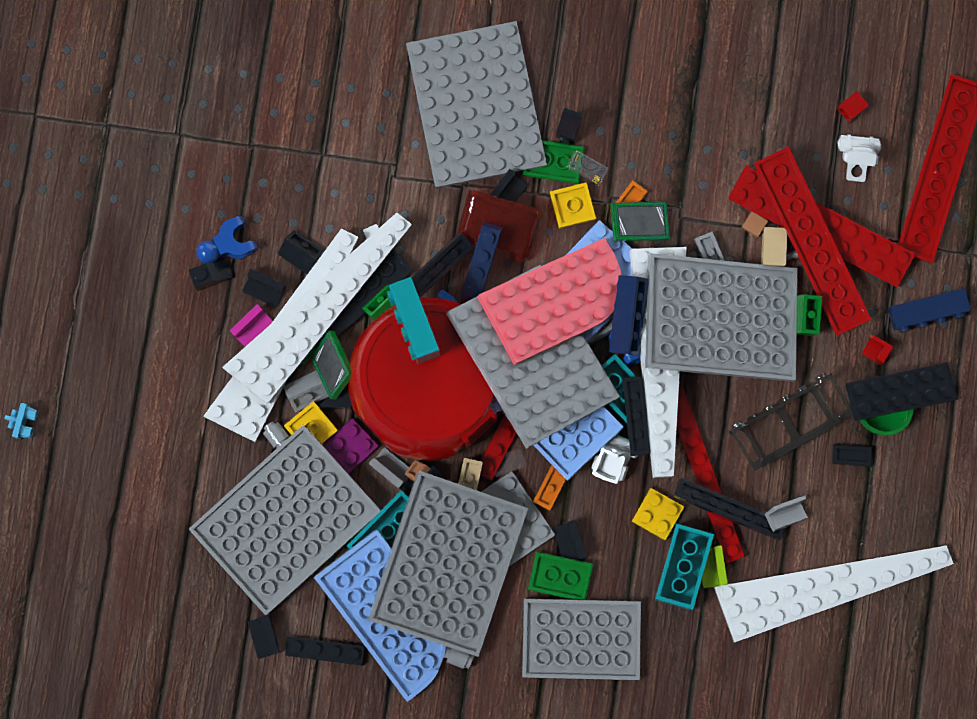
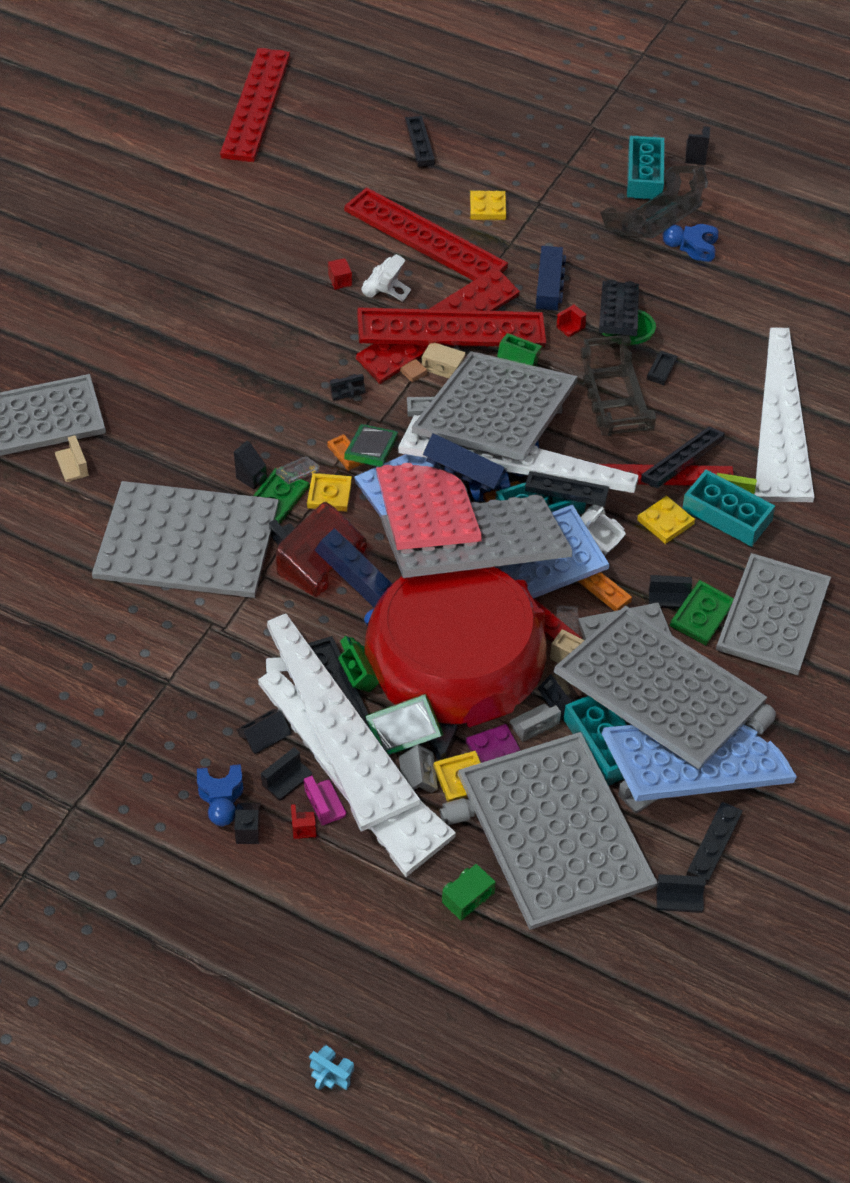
camera: 75 degrees left, 30 degrees down
(206, 470) = (468, 891): none -> green brick
(224, 318) = (303, 824): none -> red panel
(414, 320) = (399, 600): teal brick -> none
(414, 468) = (548, 694): nougat tile -> none
(441, 263) = (340, 605): black plate -> none
(704, 173) = (347, 387): none -> black hips
(786, 514) = (702, 421): light grey panel -> none

